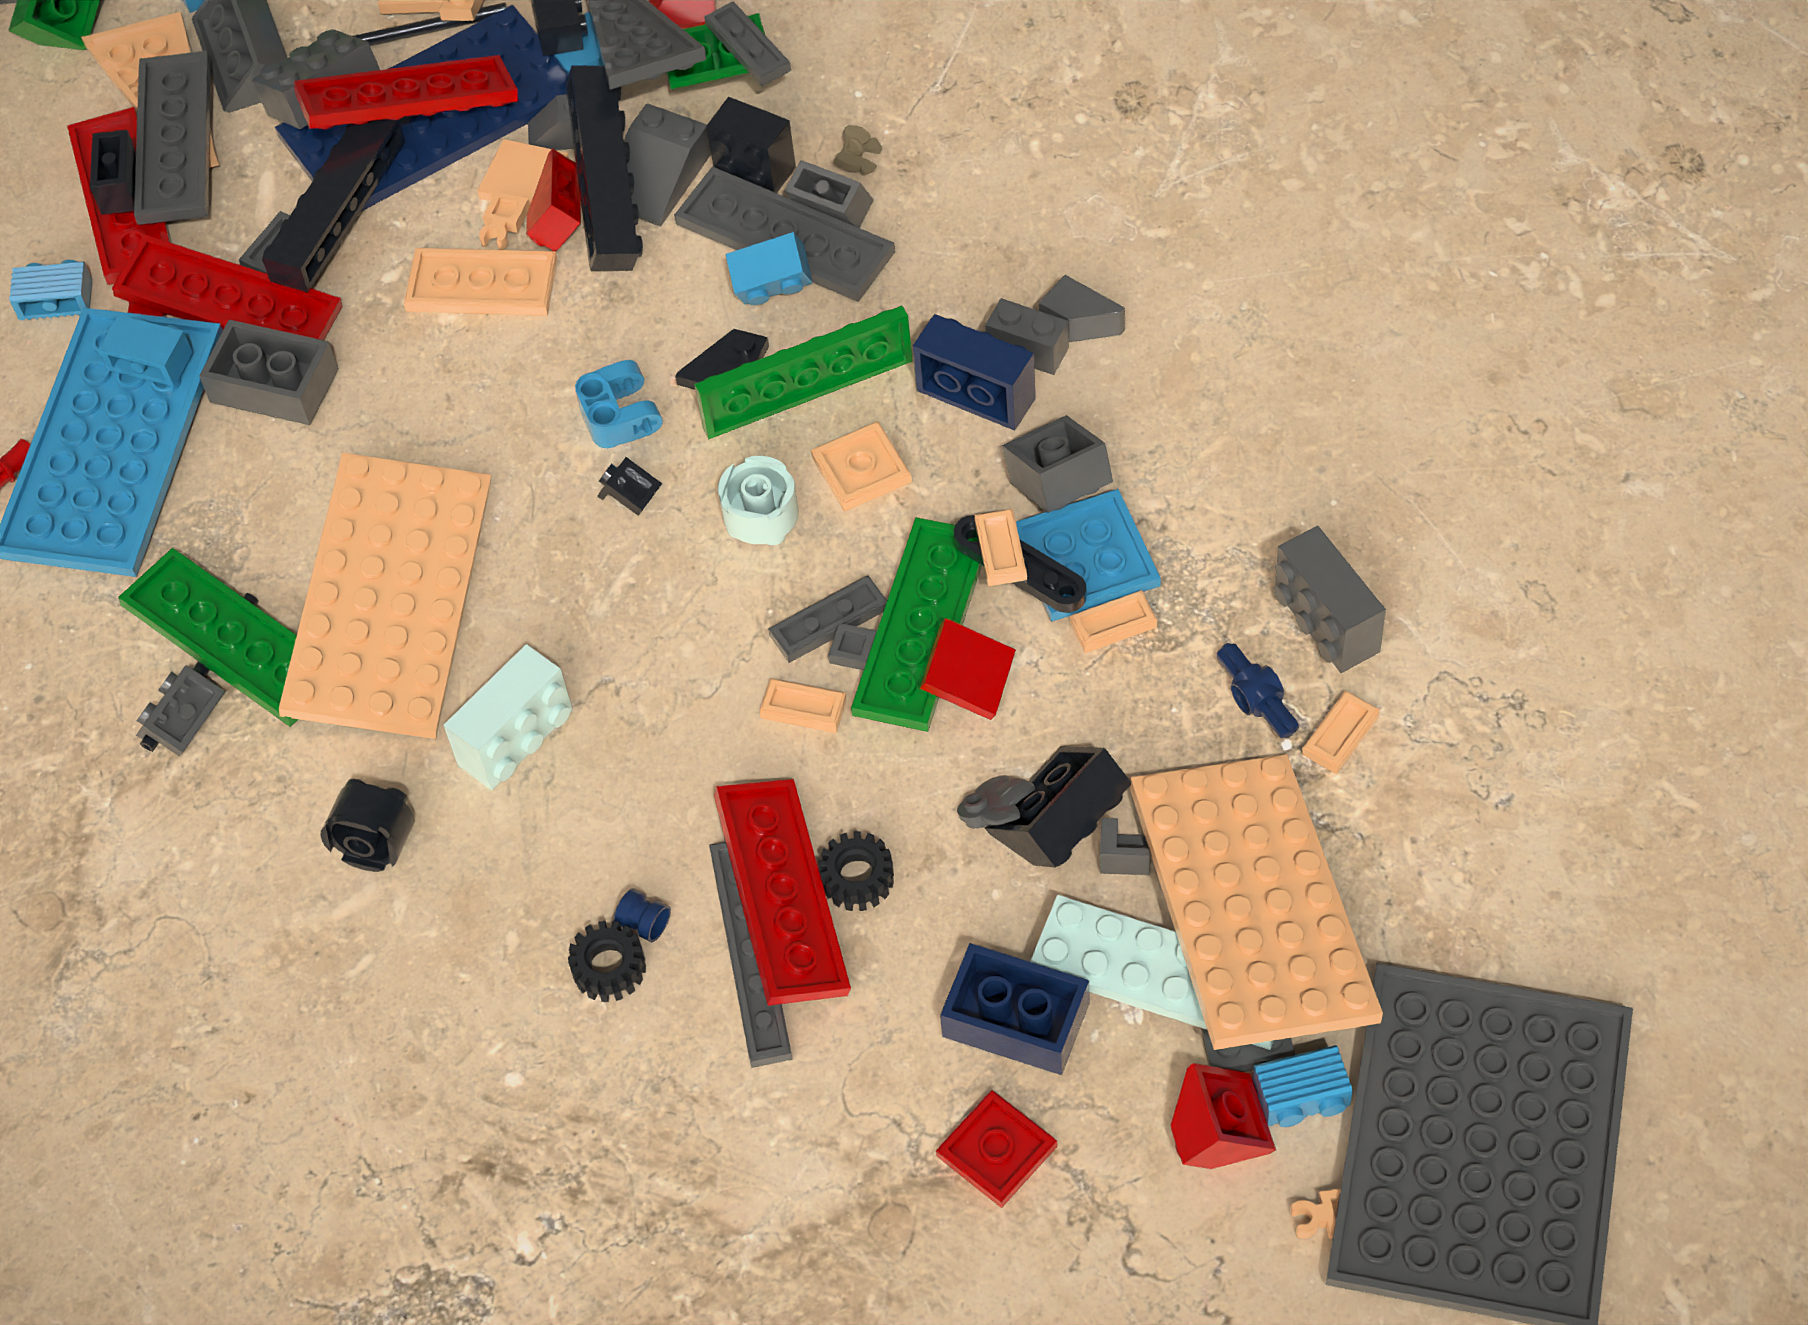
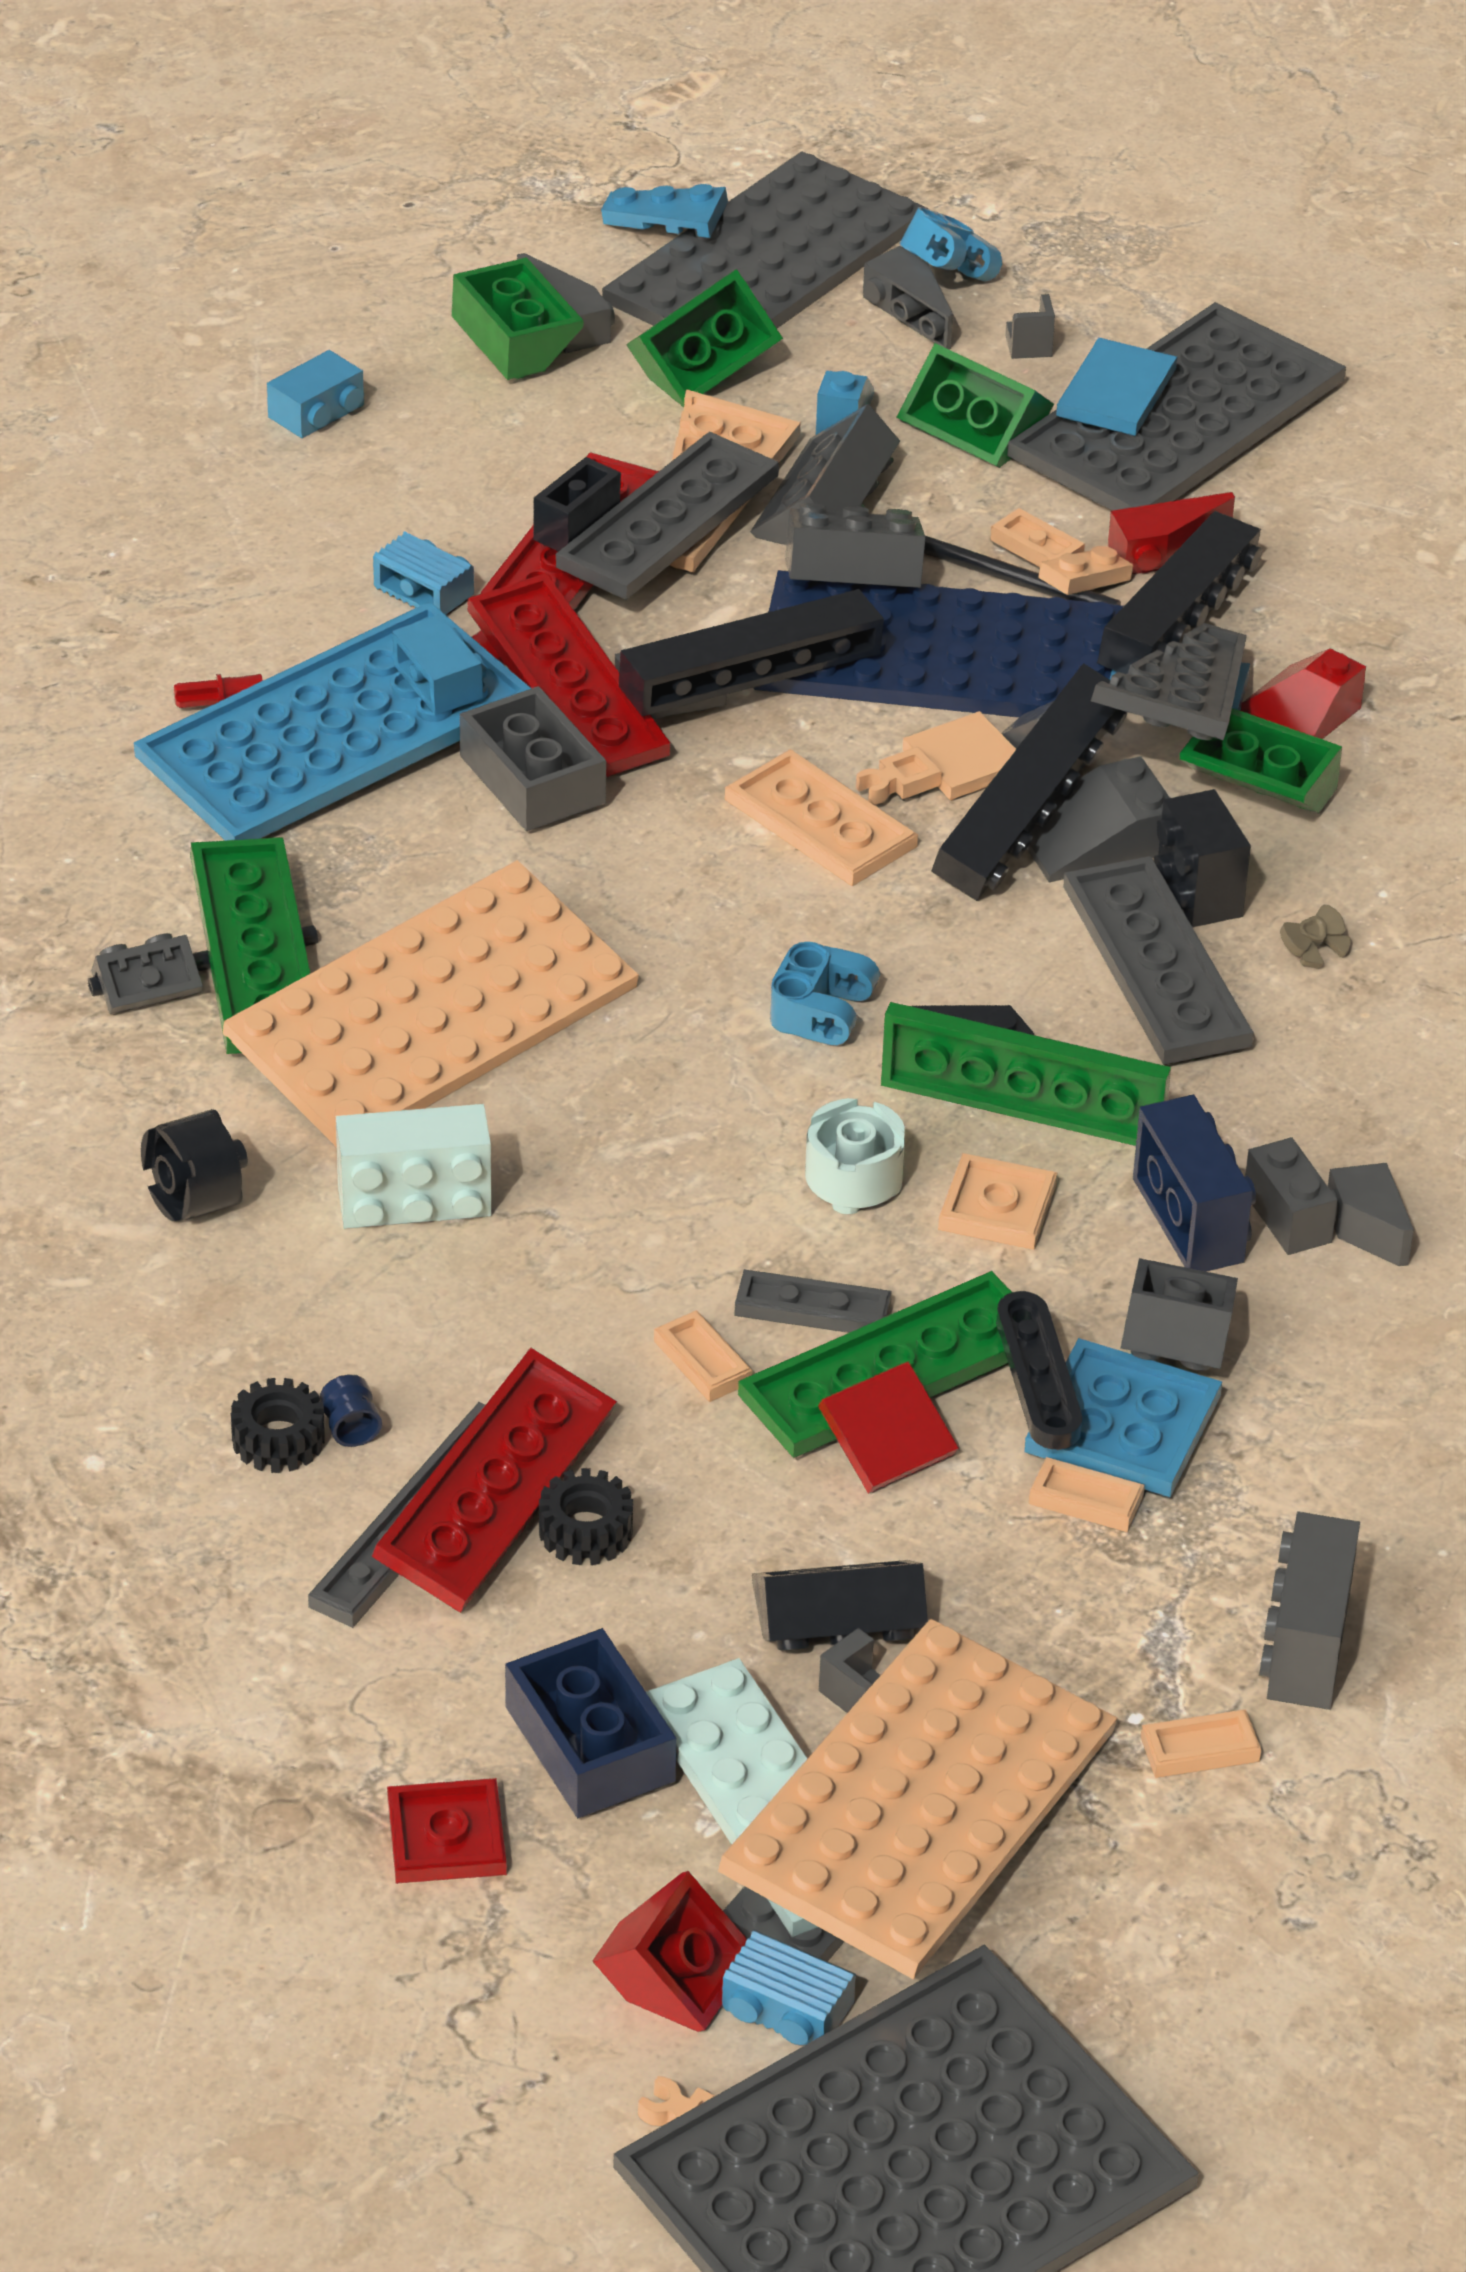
camera: 35 degrees right, 15 degrees down
(405, 91) = (914, 600): red plate -> none
(556, 203) = (953, 790): red slope -> none
(629, 485) = (753, 1066): black bracket -> none
(747, 43) = (1295, 762): dark grey tile -> none
(769, 269) = (1097, 971): dark azure brick -> none
(829, 193) = (1234, 948): dark grey brick -> none
(851, 646) = (800, 1332): dark grey plate -> none
(994, 802) = (762, 1550): dark grey plate -> none
(1000, 547) = (1029, 1337): light nougat tile -> none
(1257, 690) = (1154, 1645): dark blue axle -> none

